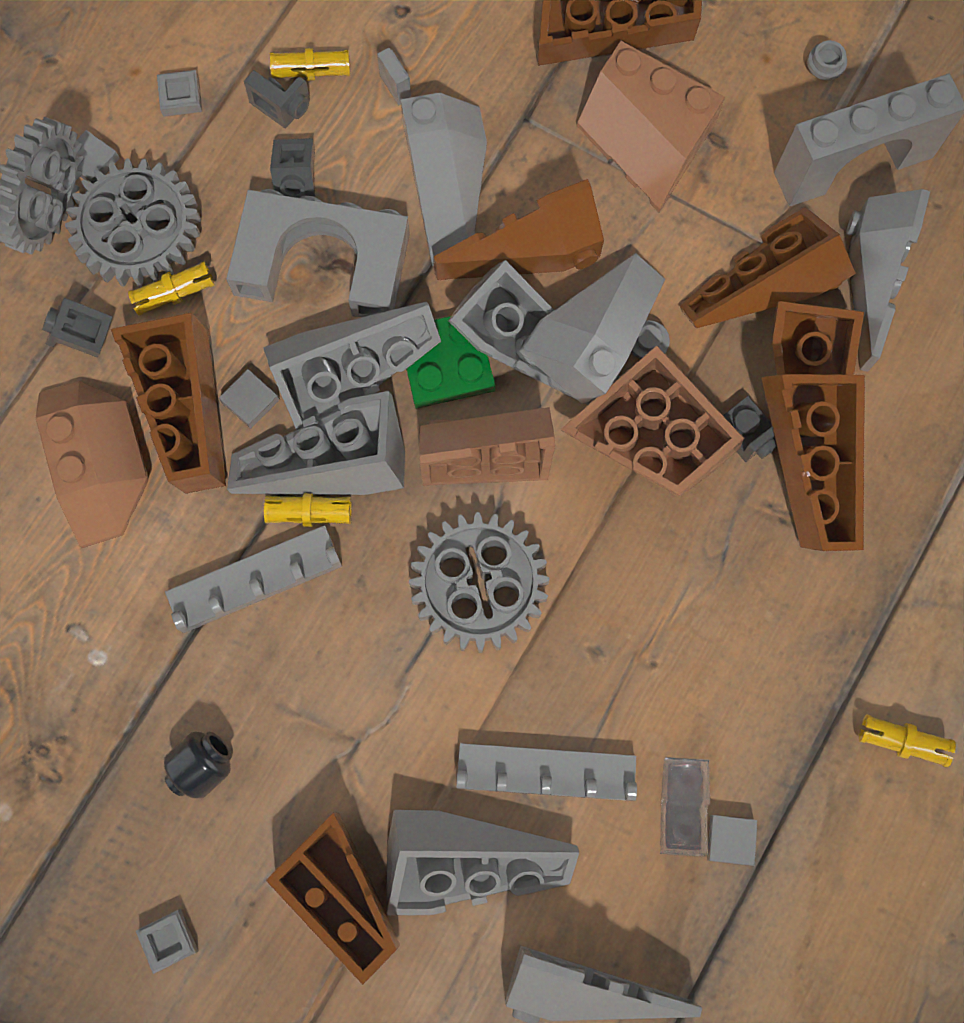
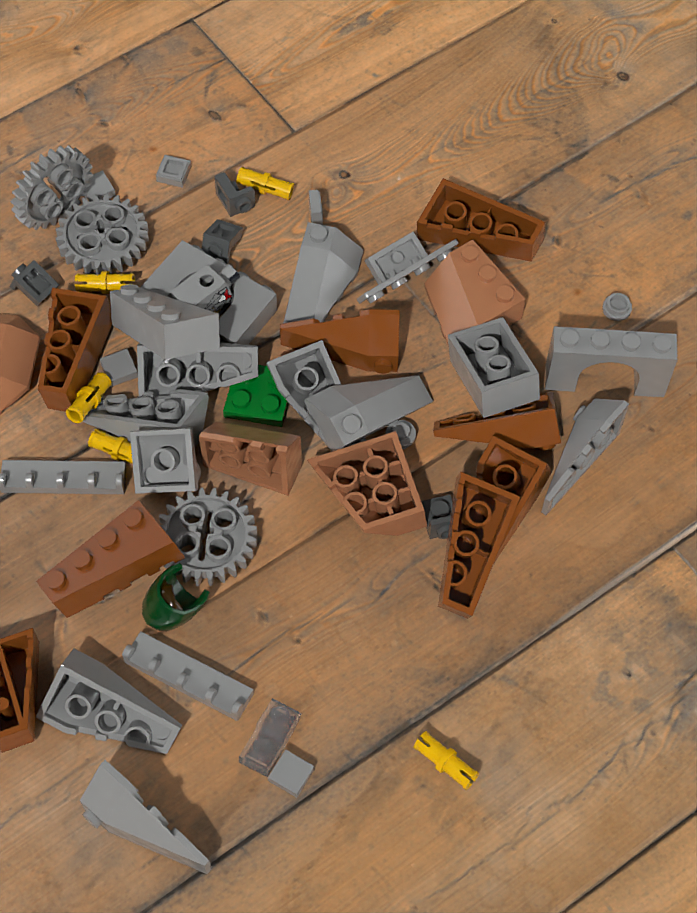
camera: 25 degrees right, 15 degrees down
(235, 460) = (80, 407): none -> yellow pin
(288, 322) = (164, 323): none -> light grey wedge
(319, 255) = (208, 289): none -> light grey torso
(383, 509) = (164, 461): none -> light grey slope
(383, 672) = (110, 561): none -> dark orange wedge
(483, 692) = (168, 603): none -> dark green piece
(537, 106) = (398, 261): none -> light grey bracket
(730, 206) = (493, 367): none -> light grey brick

